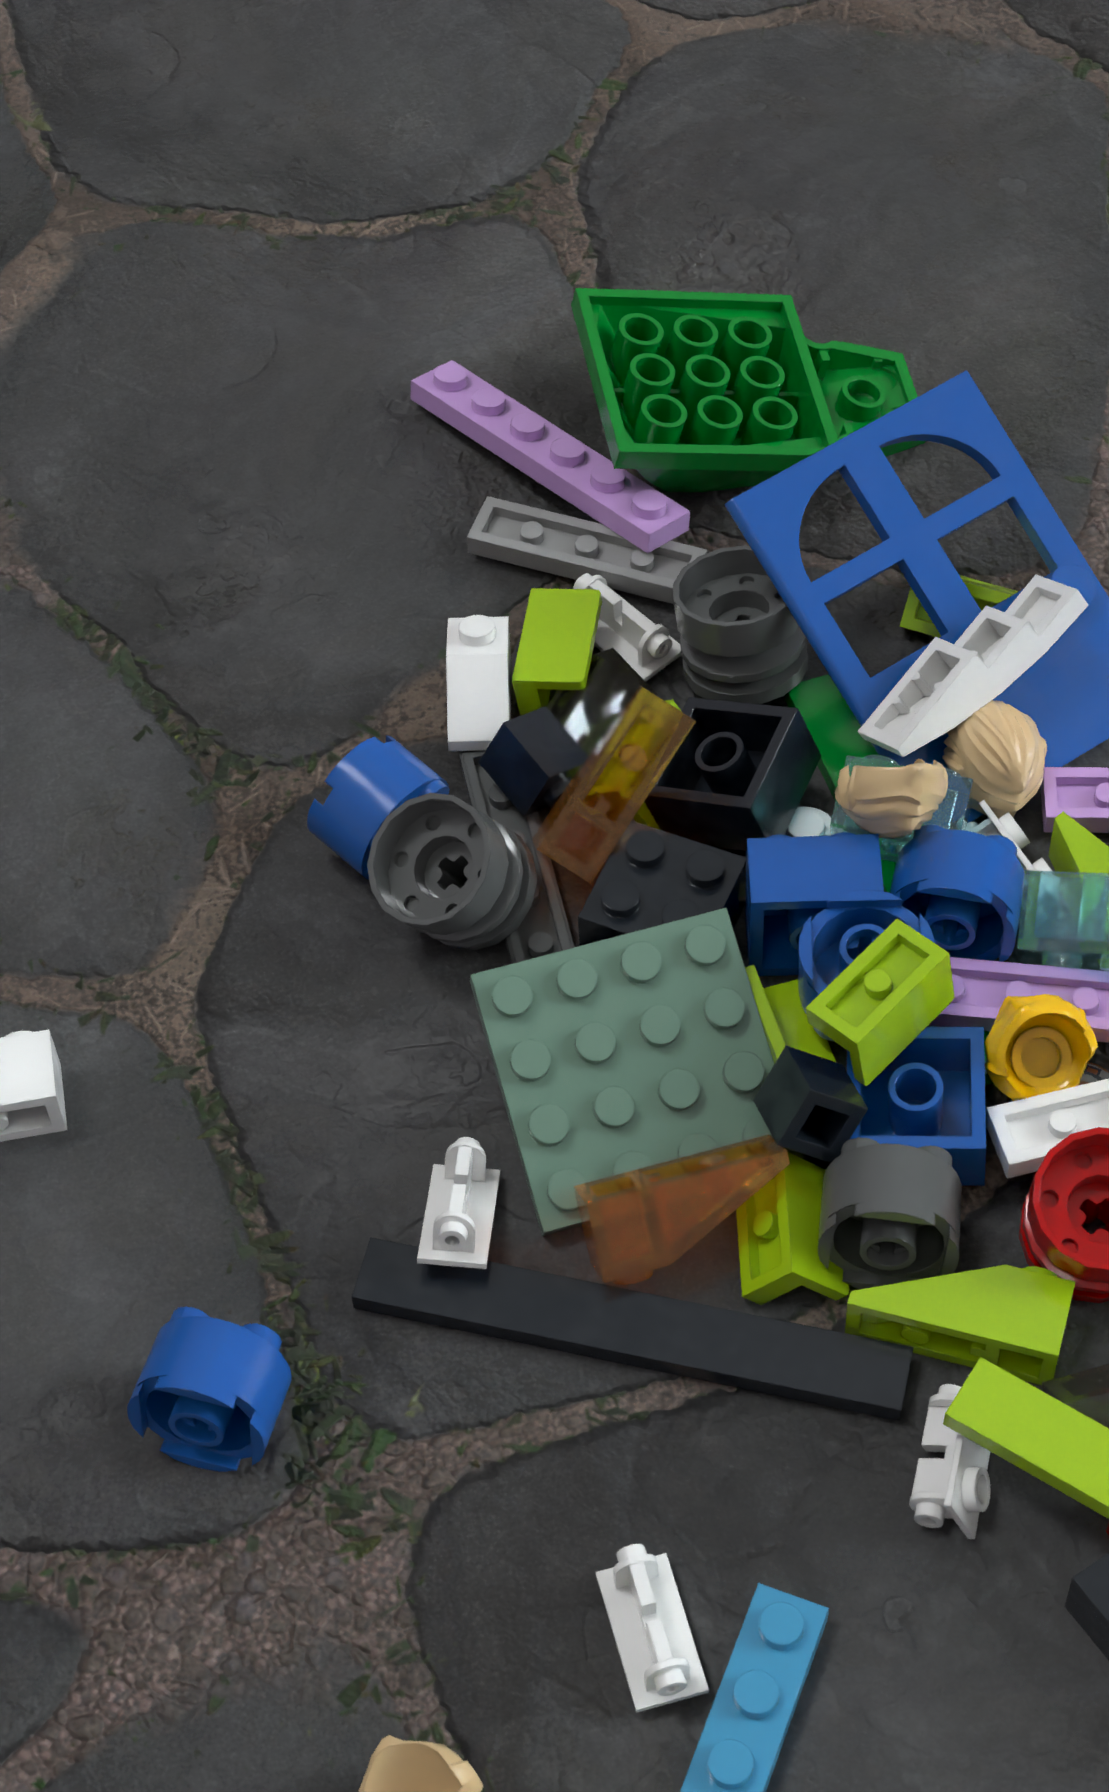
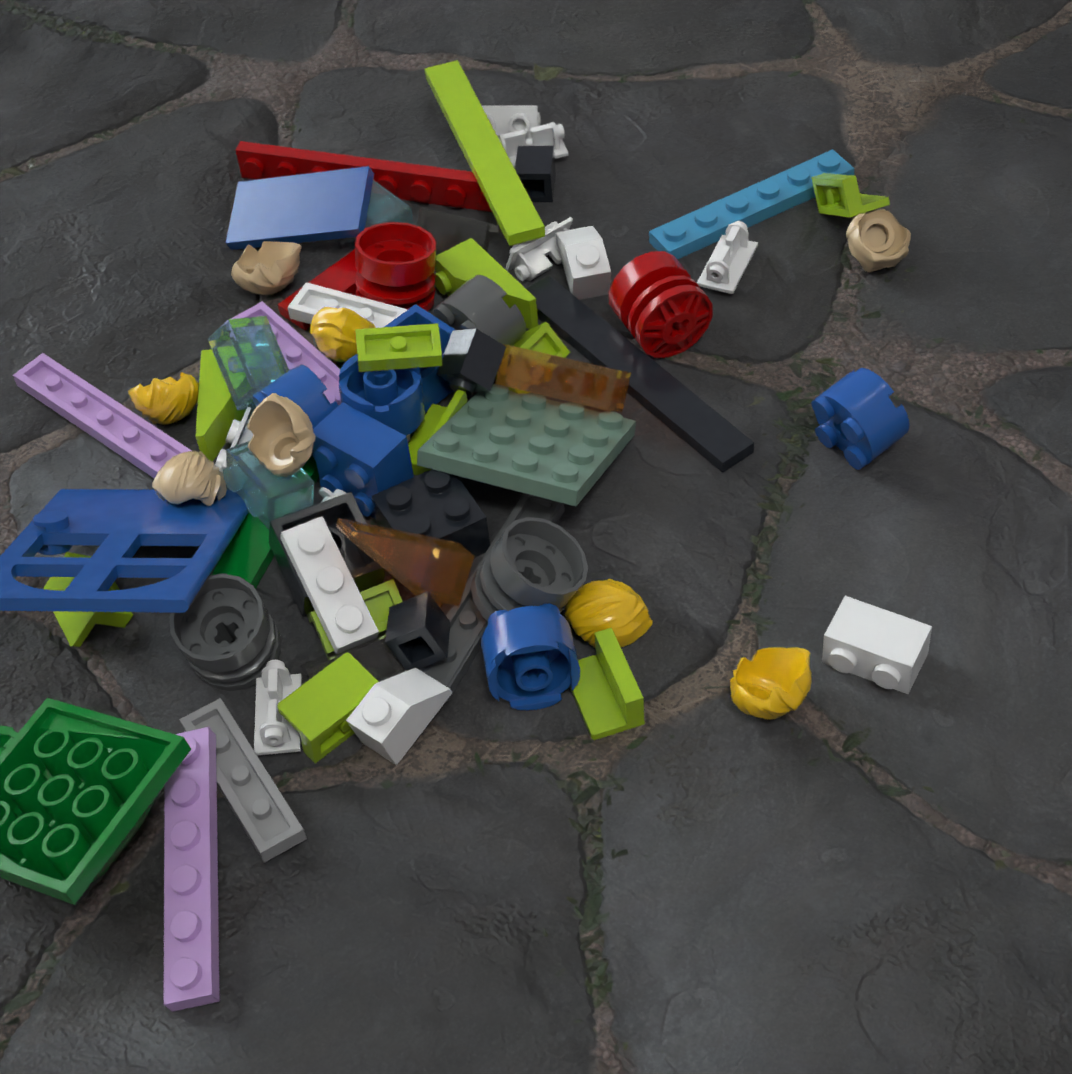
camera: 140 degrees left, 5 degrees down
(84, 957) = (771, 682): none -> yellow hair
(283, 867) = (608, 690): none -> lime panel
(350, 945) = (608, 605): none -> yellow hair
(460, 1208) = (671, 443): white hinge -> none
(637, 1402) = (660, 304): none -> red wheel
(723, 715) = (329, 585): none -> white plate
(860, 1446) = (584, 262): none -> white slope
(962, 677) = (156, 497): white slope -> none

